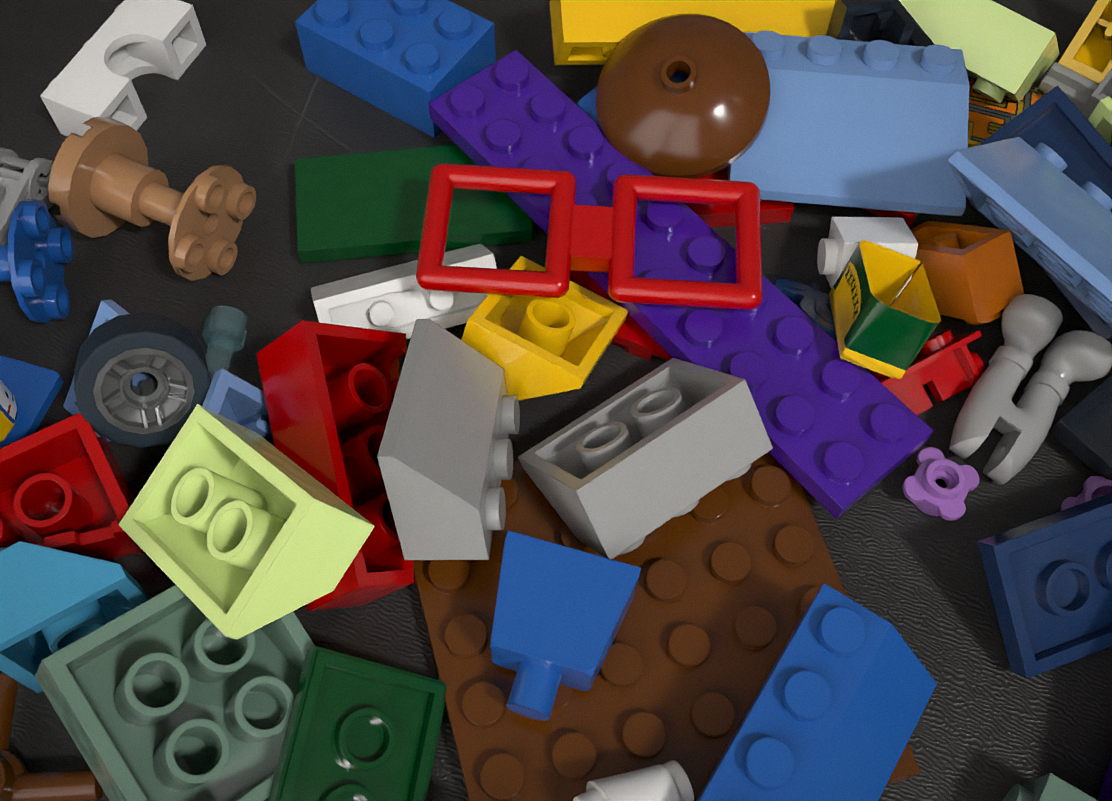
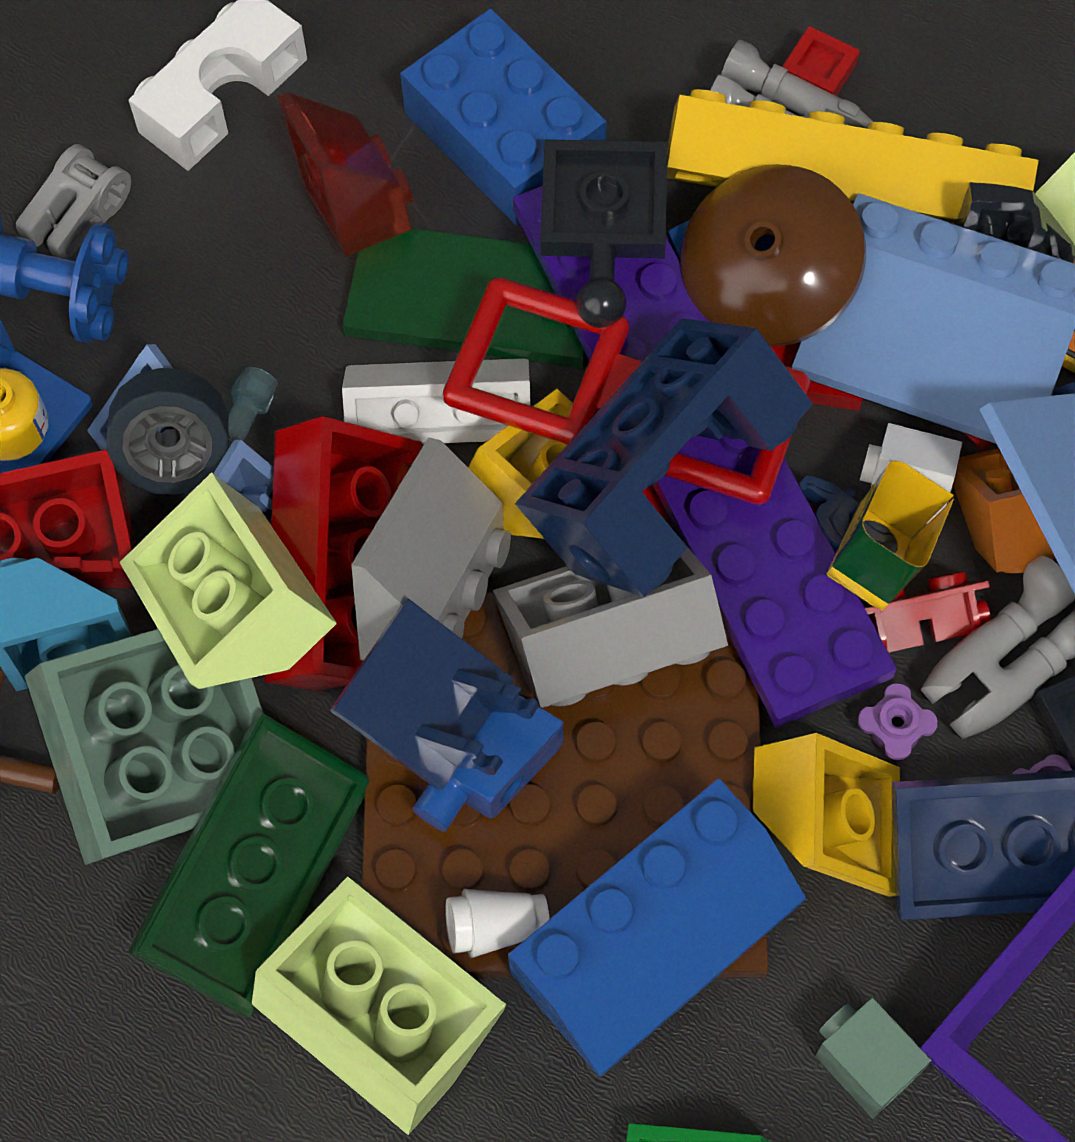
camera: 20 degrees right, 5 degrees up
(108, 181) = (179, 214): medium nougat piece -> none
(265, 116) = (346, 174): none -> clear red slope
(495, 581) = (428, 697): none -> dark blue plate
(521, 83) = (603, 205): none -> black plate
(610, 328) = (694, 383): none -> dark blue plate
(918, 581) = (829, 808): none -> yellow slope

